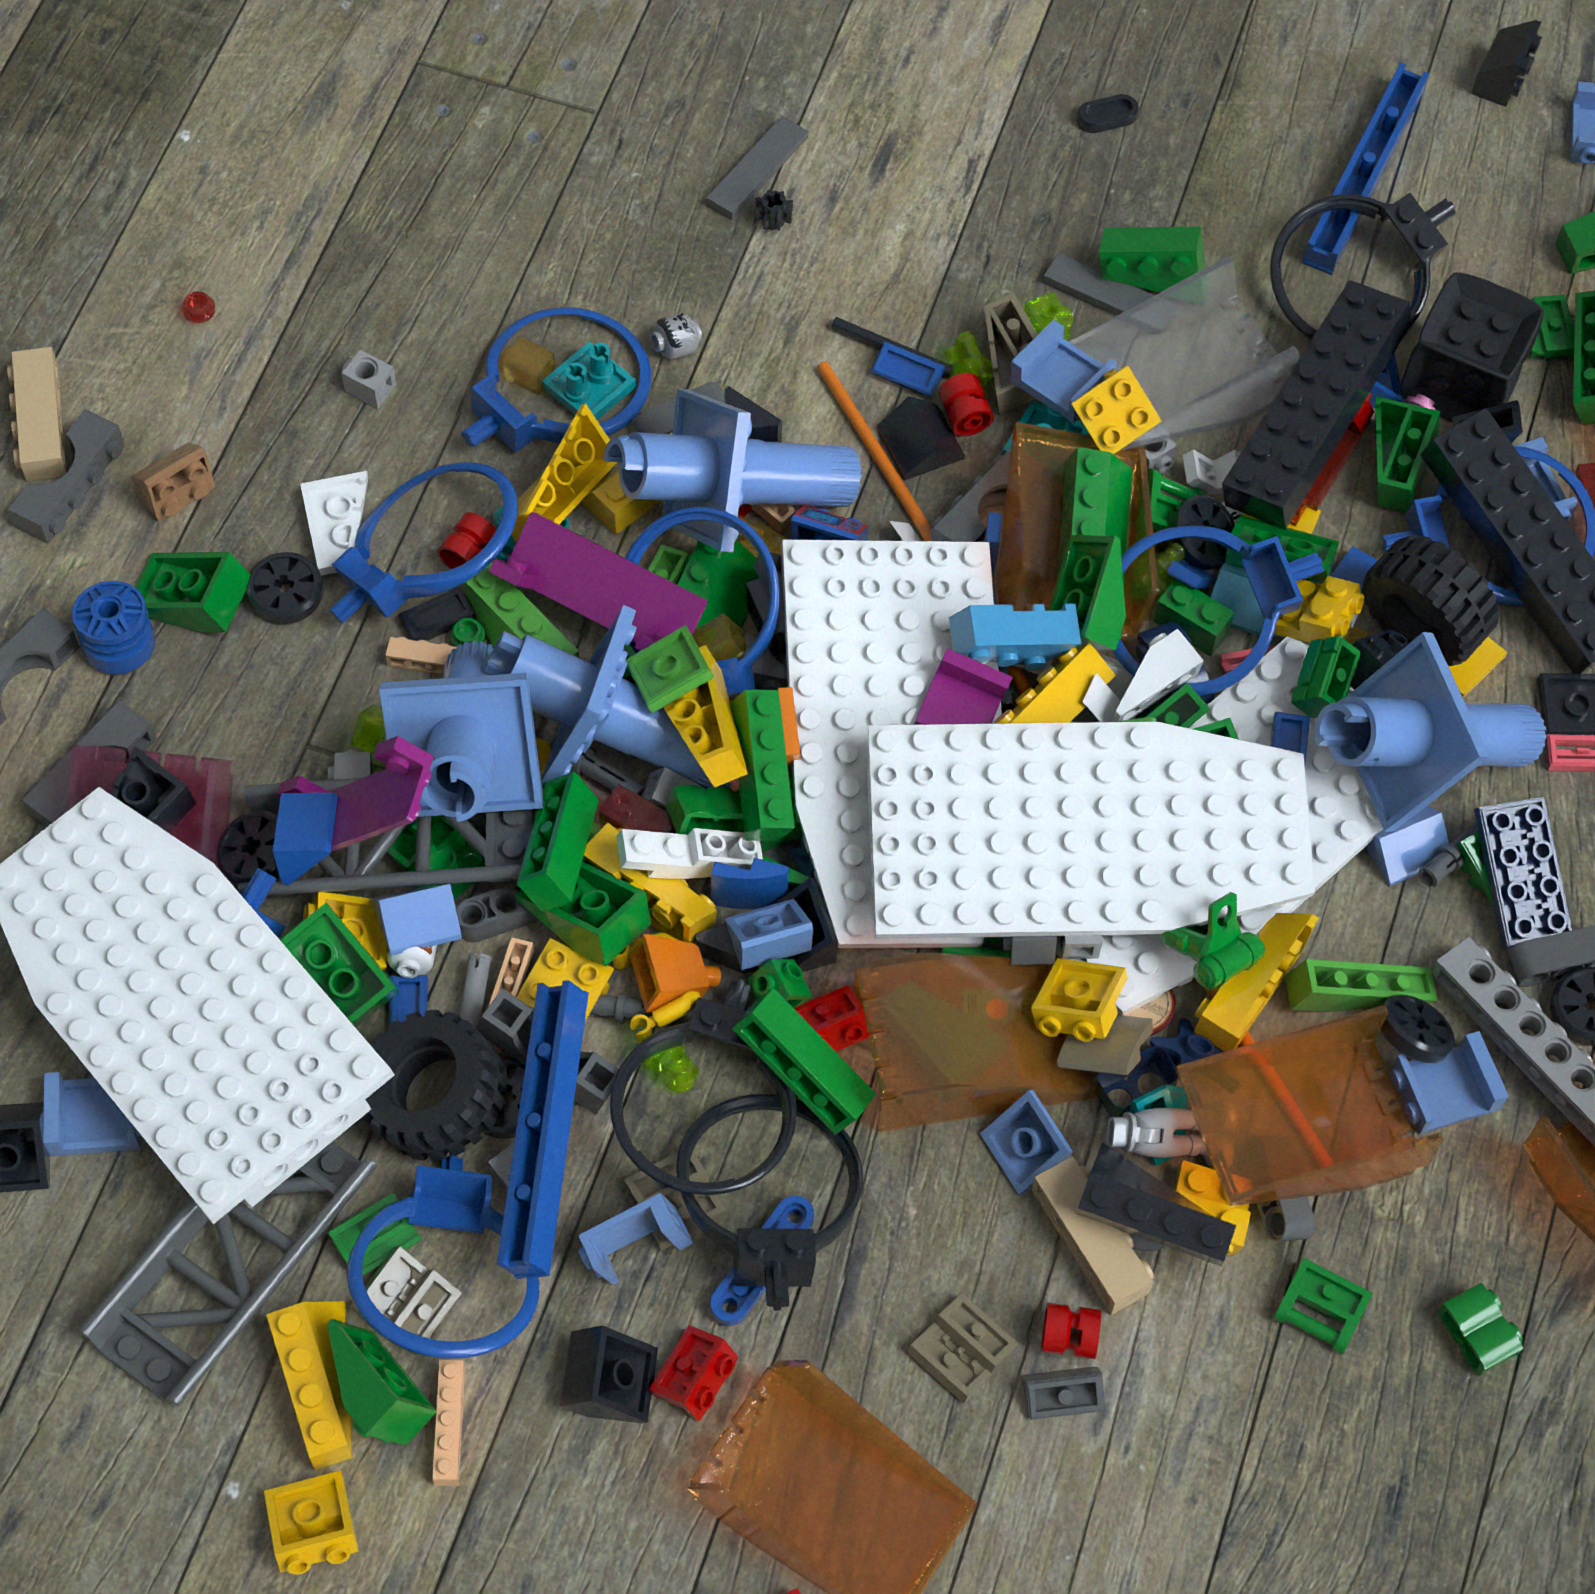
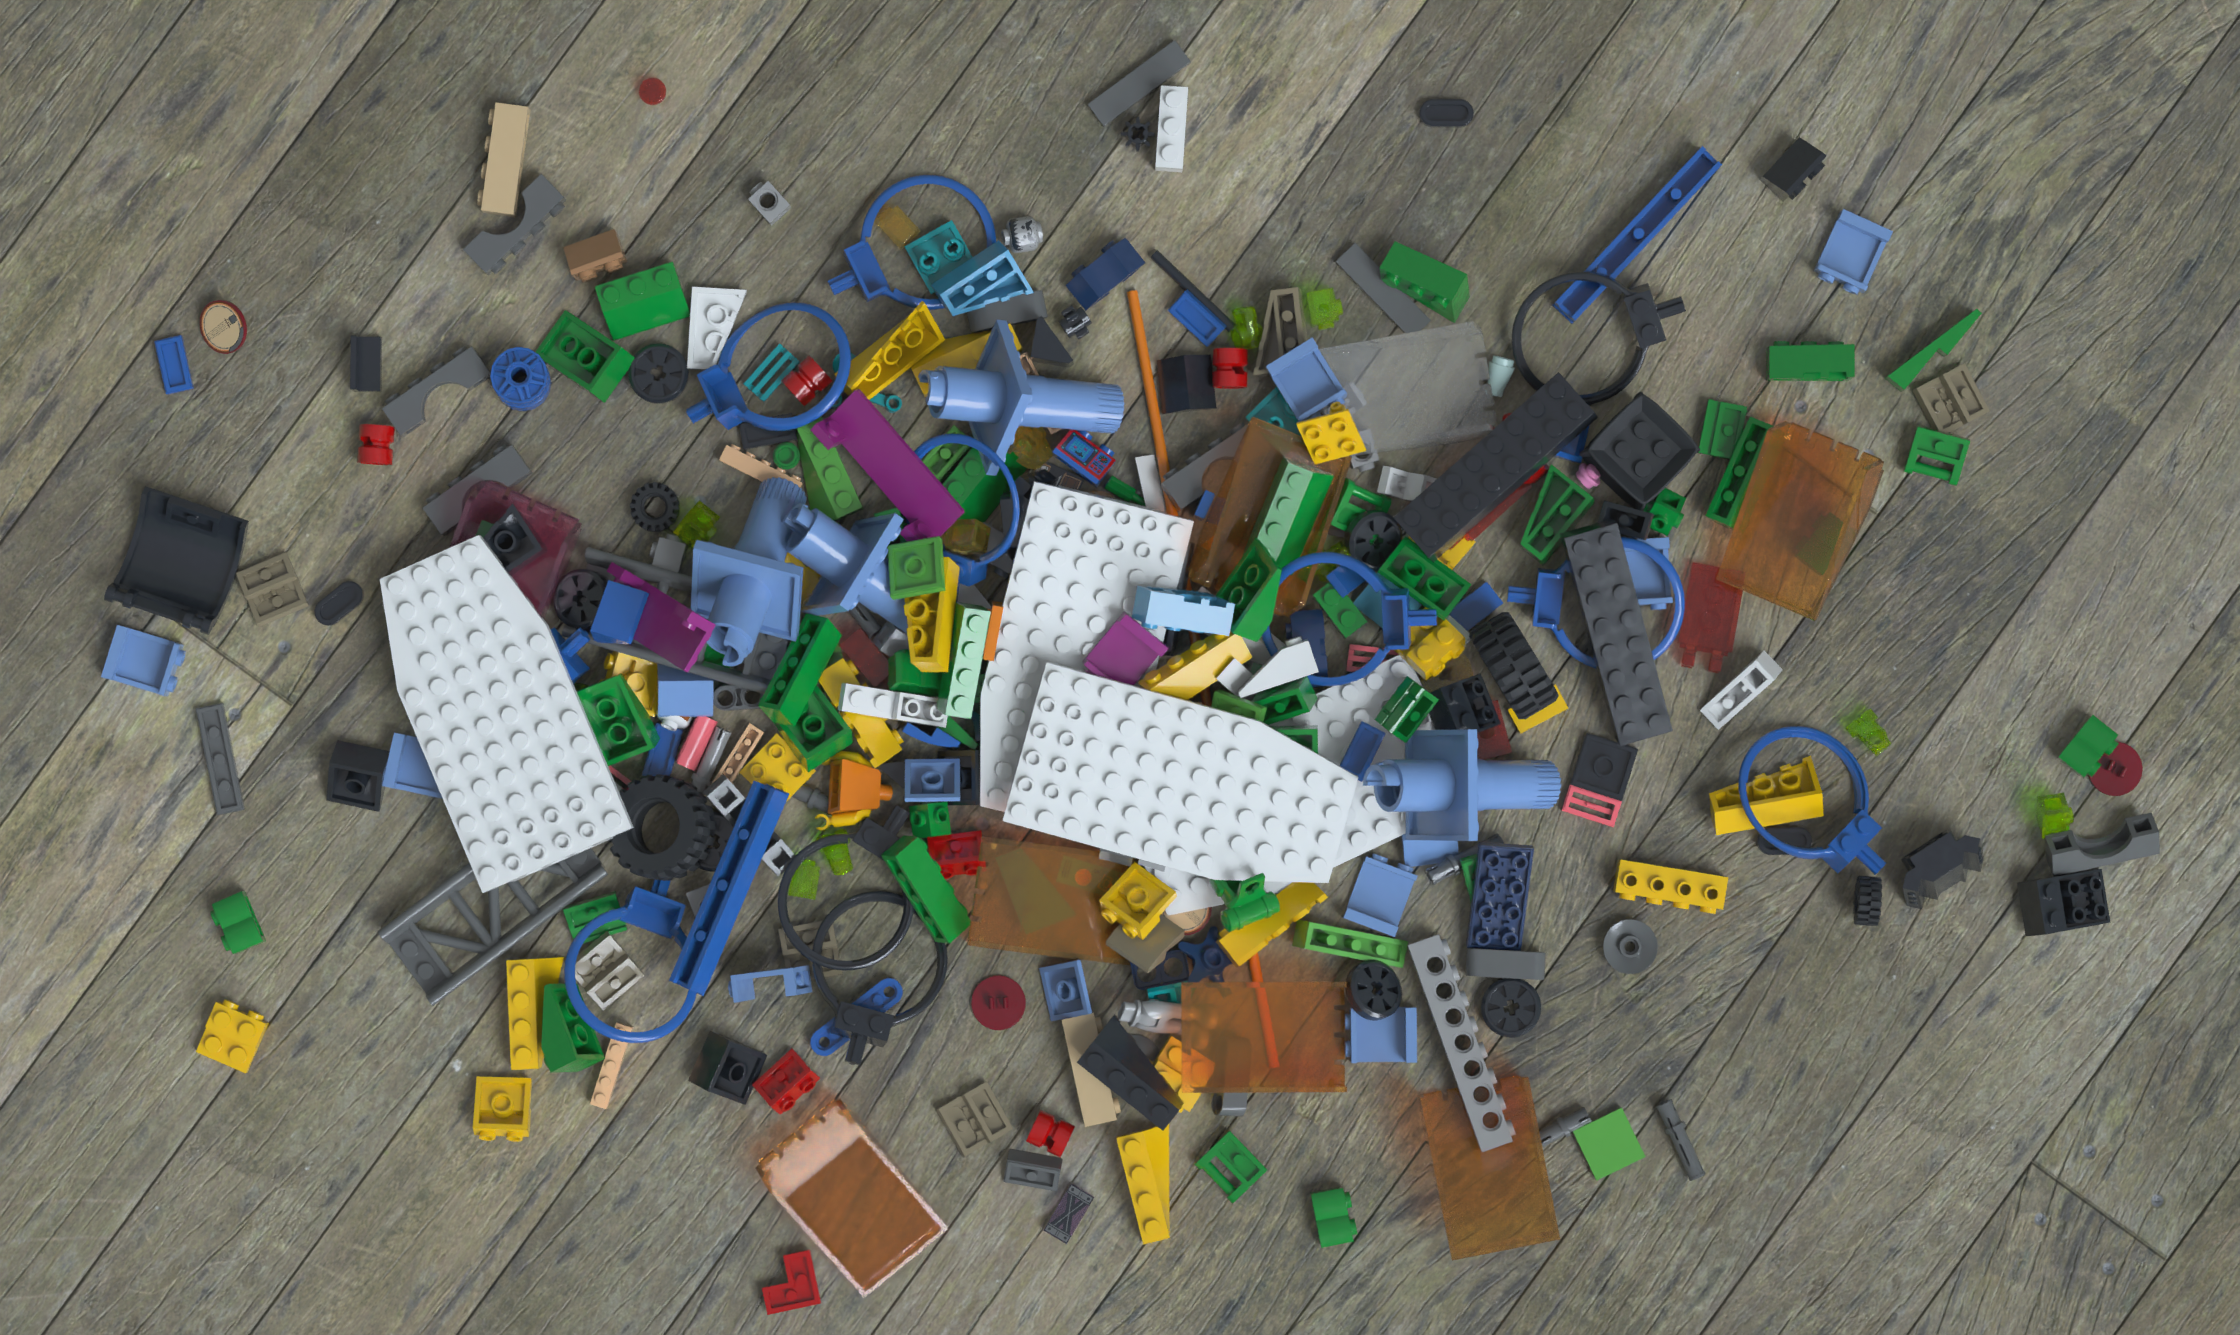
camera: 15 degrees right, 25 degrees up
(244, 511) = (643, 301): none -> green slope
(317, 713) = (638, 507): none -> black tyre
(412, 547) = (756, 390): none -> teal tile
(449, 978) = (696, 742): none -> coral brick
(641, 1109) = (805, 880): none -> clear neon green bracket
(647, 381) = (981, 281): none -> dark azure wedge
(771, 399) = (1075, 322): none -> black gear
(792, 338) = (1105, 273): none -> dark blue brick
(810, 194) = (1171, 128): none -> white brick
(942, 1192) = (998, 1002): none -> dark red piece
(1132, 1434) = (1068, 1213): none -> tile
(1214, 1347) = (1147, 1174): none -> yellow wedge
(1275, 329) = (1500, 373): none -> light aqua cone
(1374, 918) = (1380, 894): none -> medium blue panel
(1533, 409) = (1666, 511): none -> green brick

